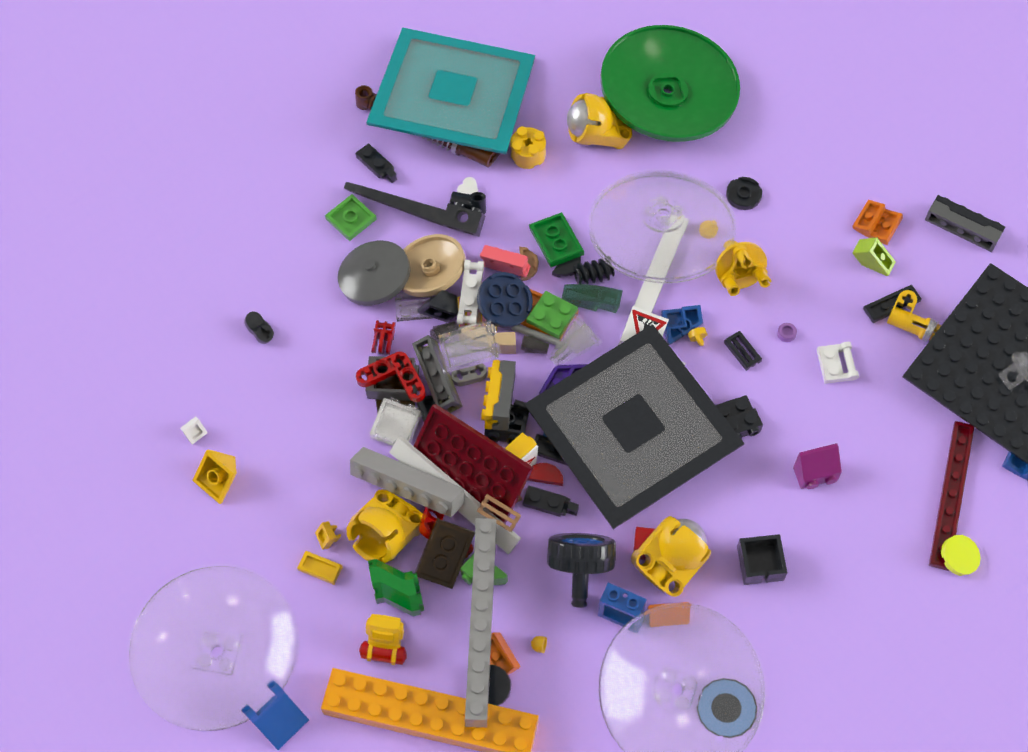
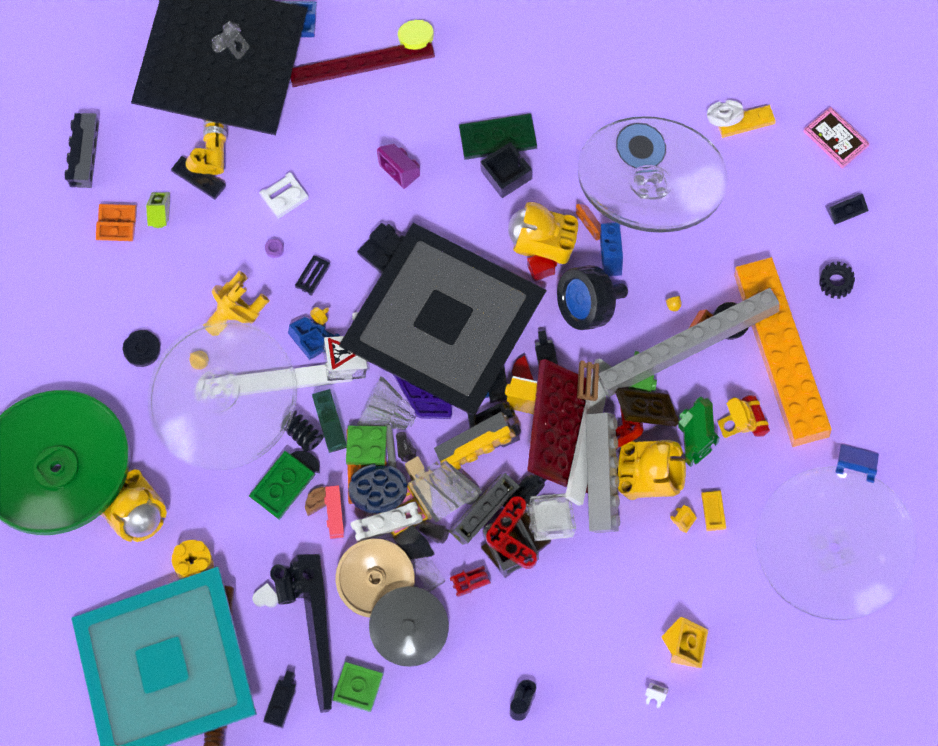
camera: 115 degrees left, 5 degrees up
(807, 578) = (488, 136): none -> dark green tile

